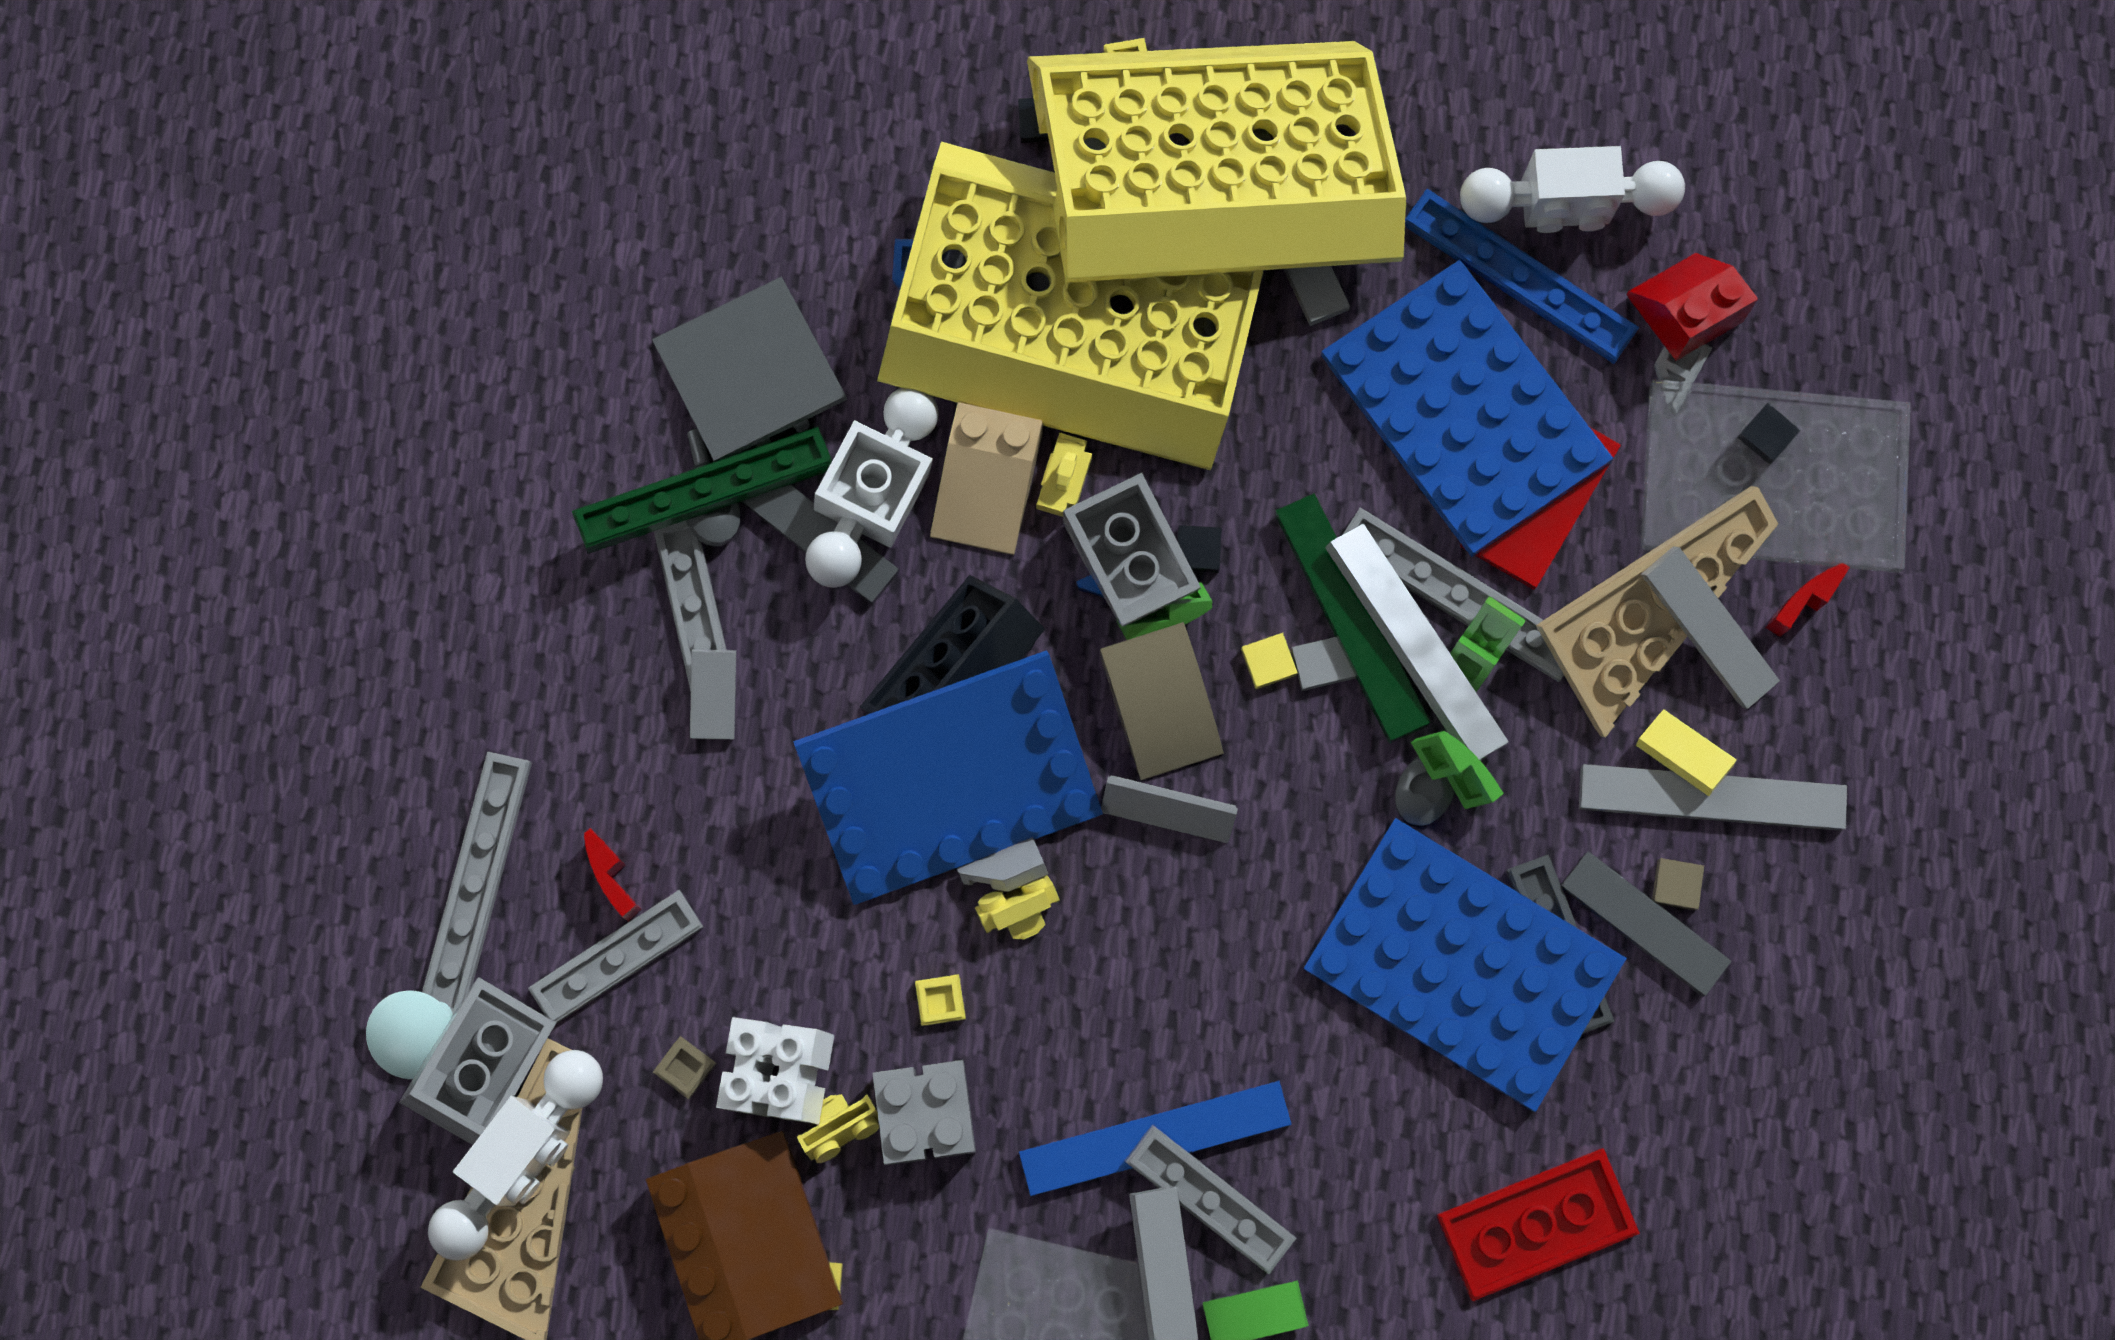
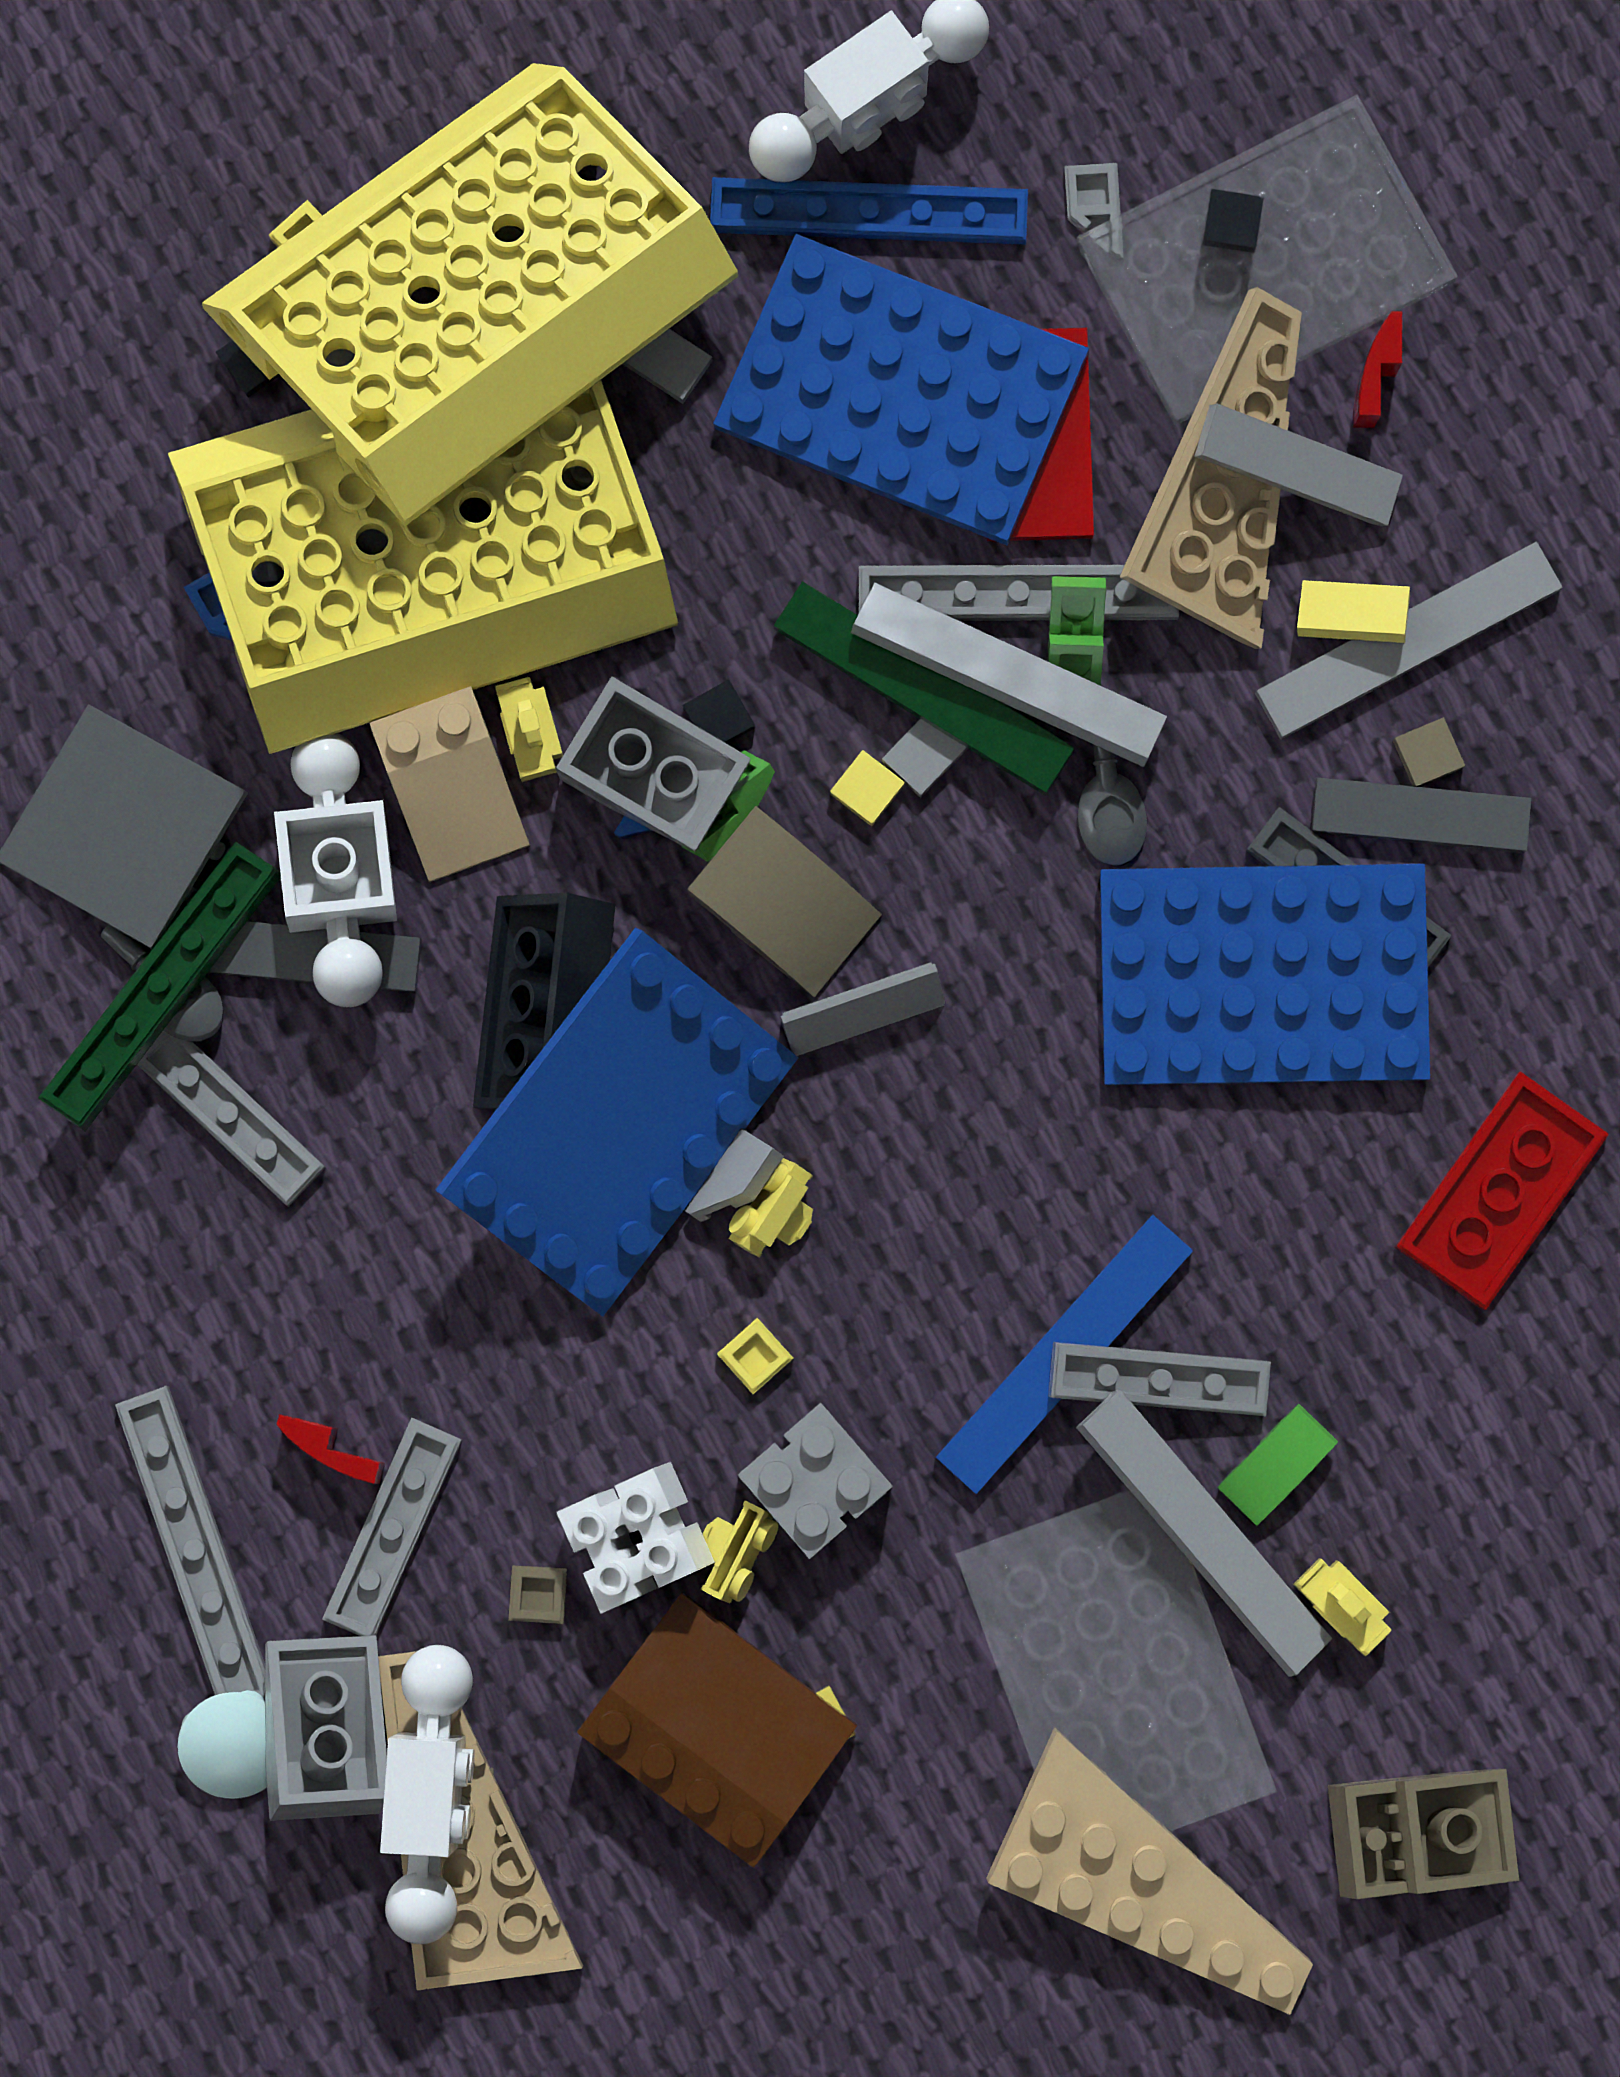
camera: 30 degrees left, 5 degrees up
(713, 694) = (313, 1193): light grey tile -> none
(1450, 758) = (1115, 773): bright green slope -> none
(1693, 303) = (1067, 128): red slope -> none

